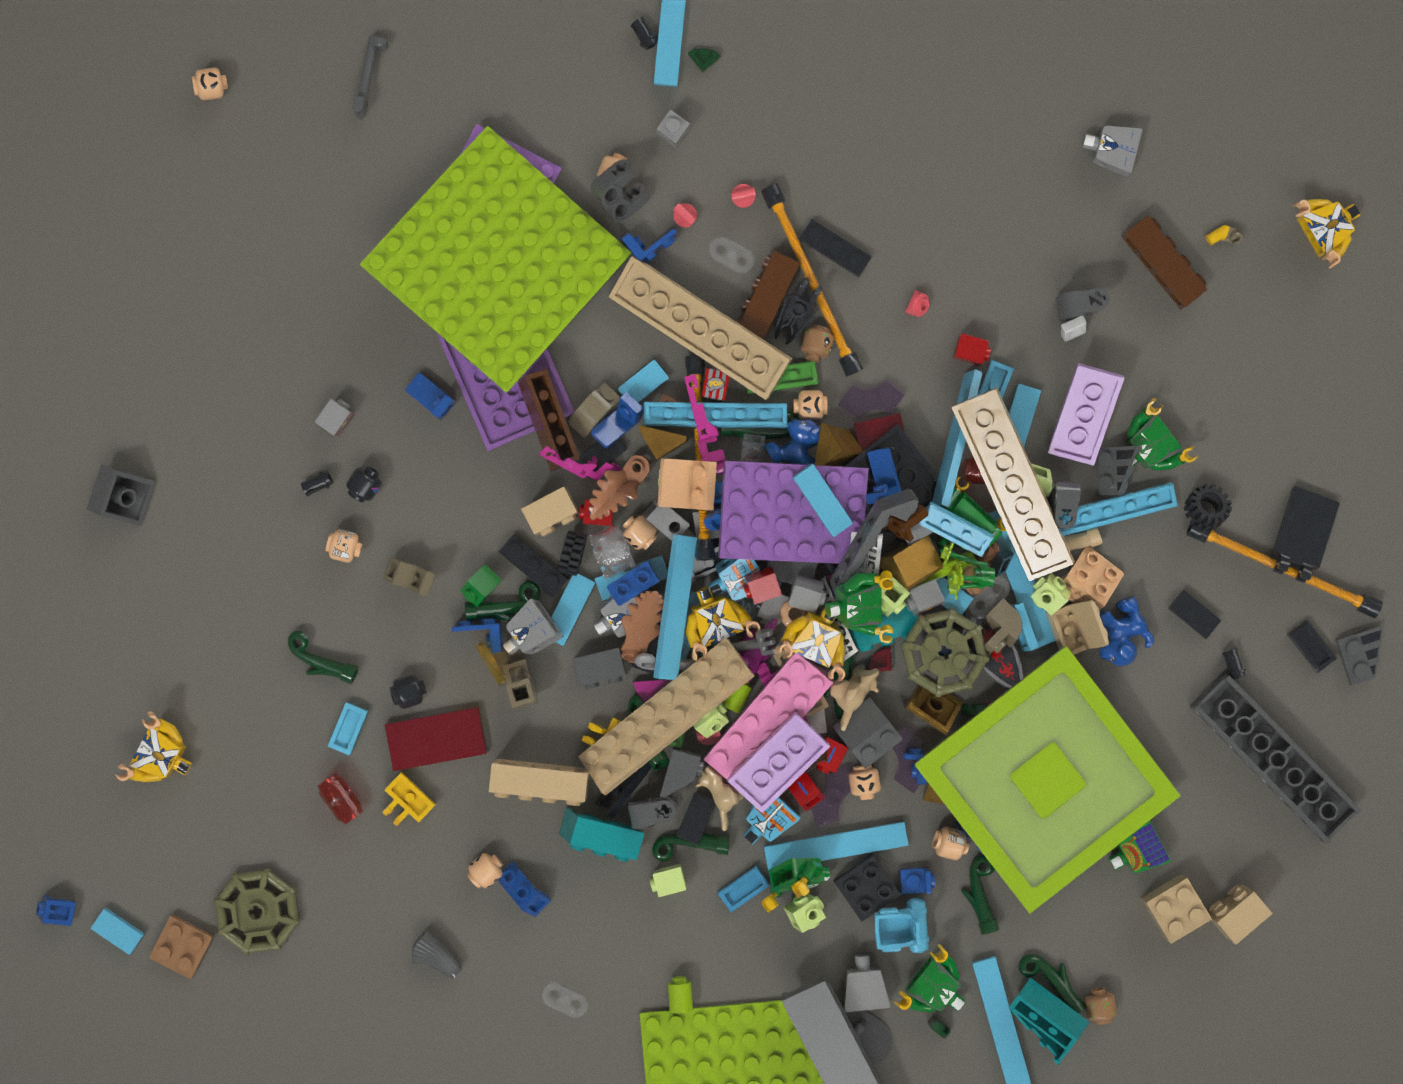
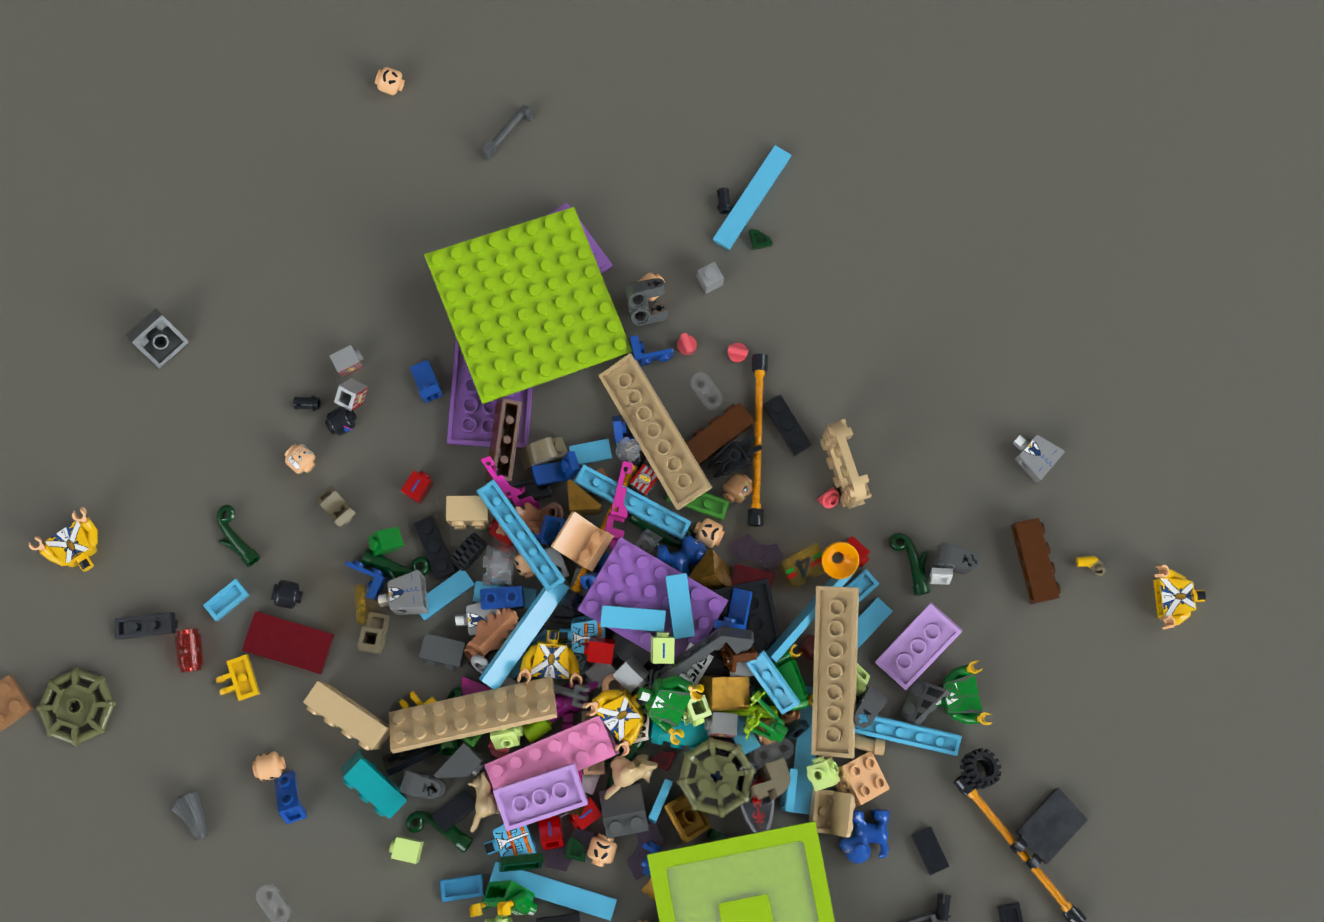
camera: 25 degrees right, 10 degrees down
(281, 796) = (145, 625): none -> black hinge
(359, 451) = (351, 394): none -> light grey brick
(481, 511) = (417, 486): none -> red brick
(620, 511) = (520, 536): none -> medium azure tile
(645, 487) = (550, 529): none -> blue bracket
(667, 350) = (620, 429): none -> blue bracket
(682, 362) = (628, 449): none -> clear gear
(781, 537) = (632, 618): none -> medium azure tile
(790, 835) = (520, 862): none -> dark green tile
(826, 553) = (662, 648): none -> yellowish green brick
(838, 795) = (575, 850): none -> dark green tile
(899, 707) = (661, 798): none -> medium azure tile
(909, 259) = (846, 478): none -> tan plate
(925, 391) = (802, 565): none -> clear yellow slope
(971, 370) = (844, 568): none -> light orange piece
(1042, 328) = (916, 564): none -> dark green plant

